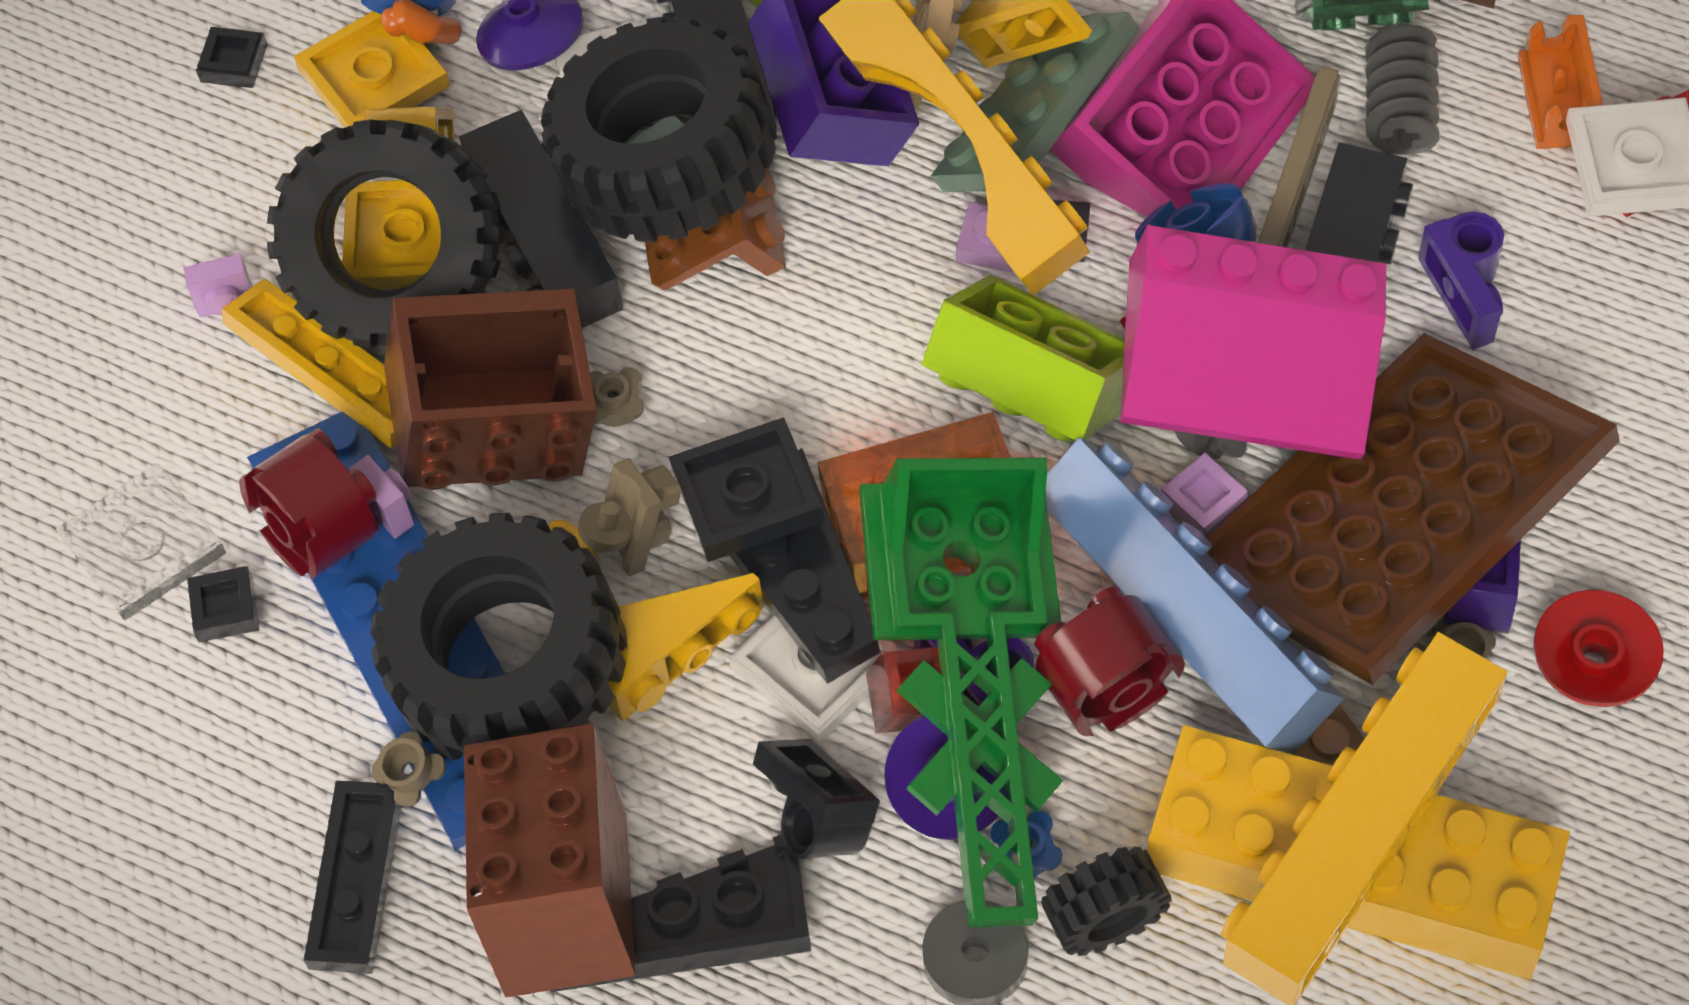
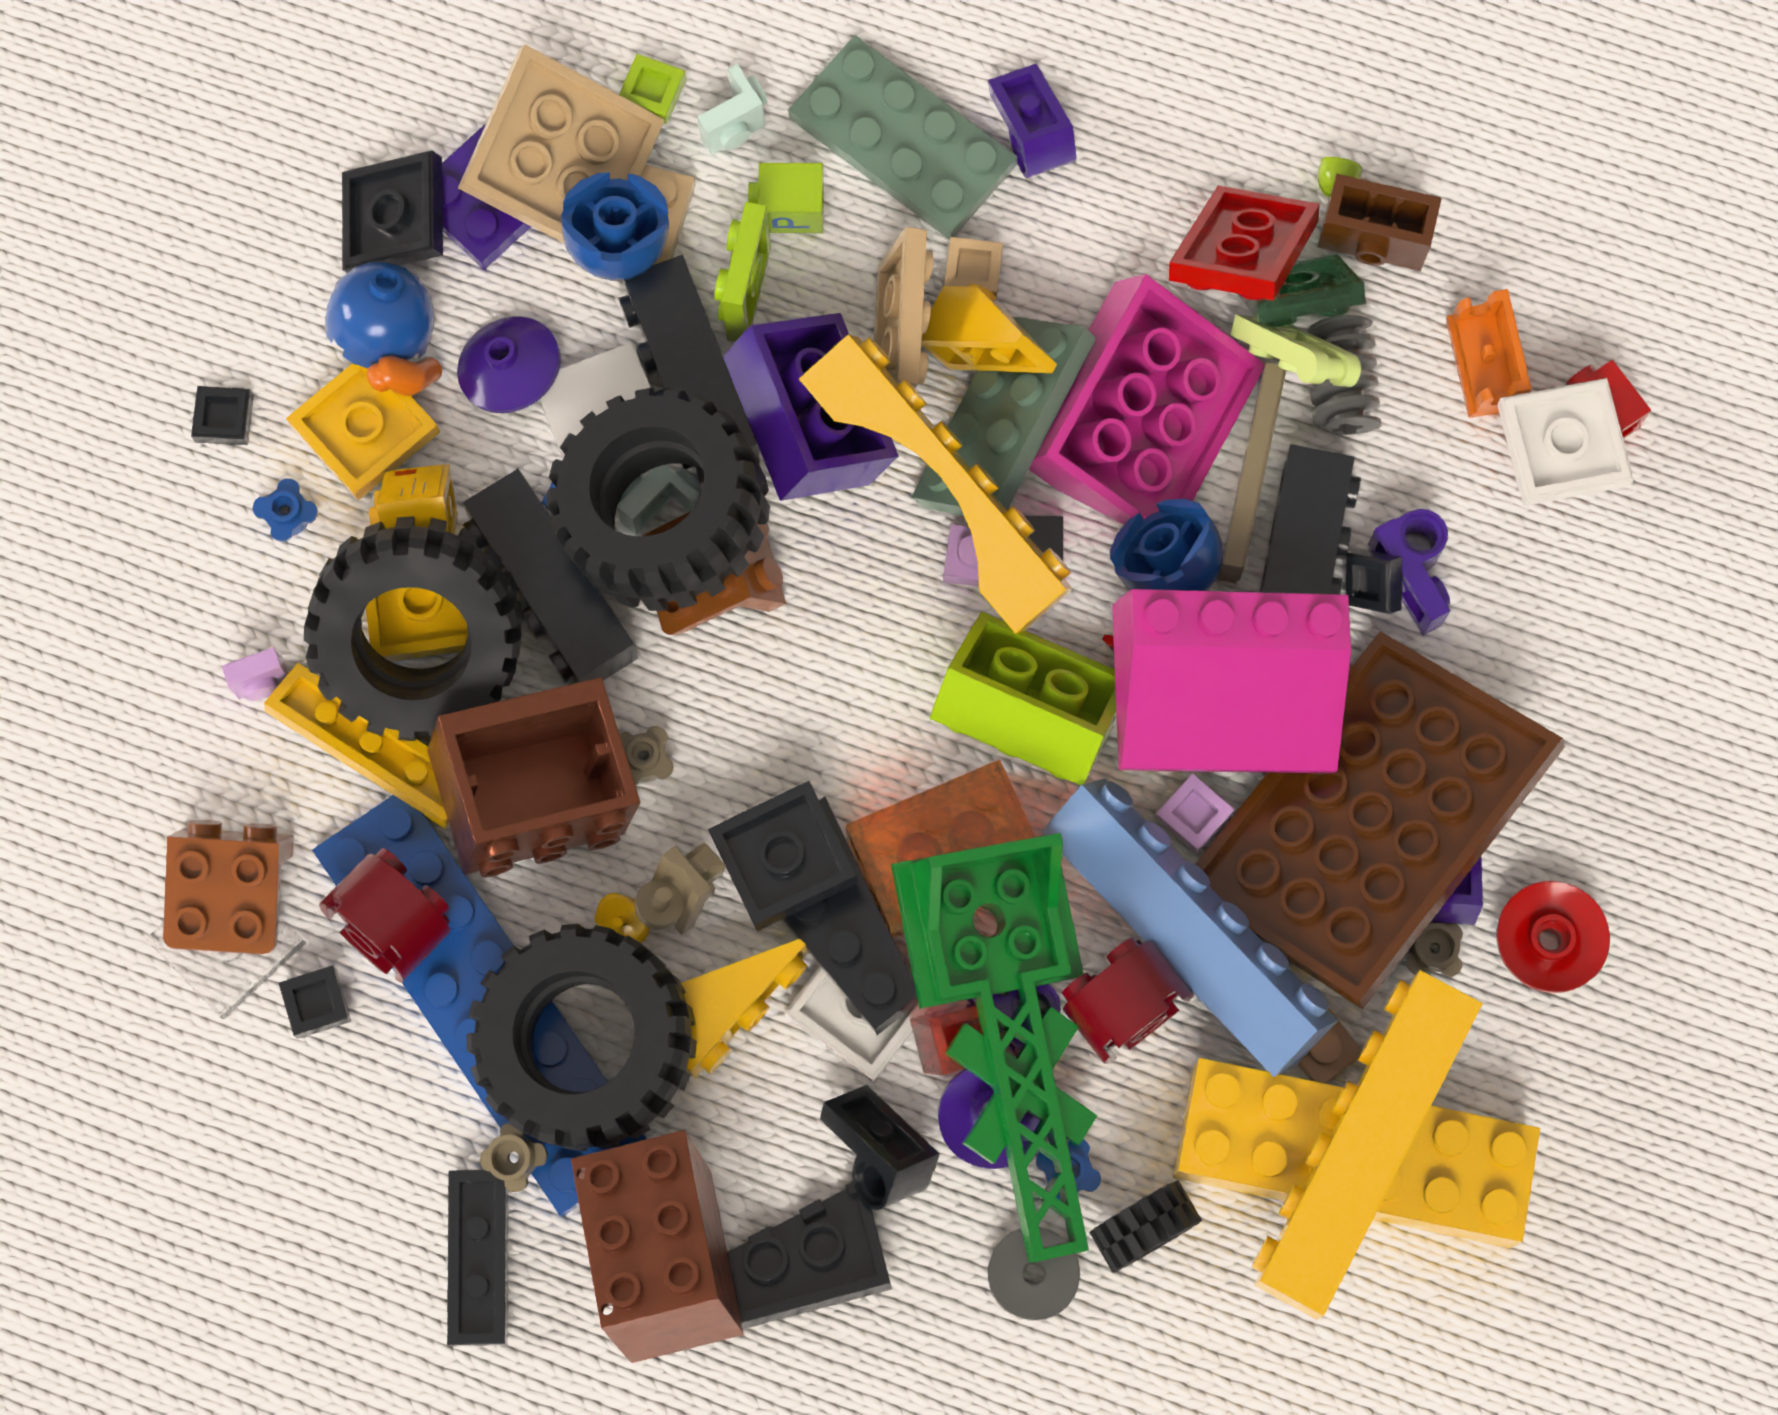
camera: 10 degrees left, 15 degrees up
(146, 481) = (224, 887): none -> dark orange bracket
(277, 156) = (285, 525): none -> blue plate
(391, 494) = (454, 890): lavender plate -> none
(1352, 51) = (1298, 352): none -> yellowish green plate
(1420, 281) = (1374, 580): none -> black tile

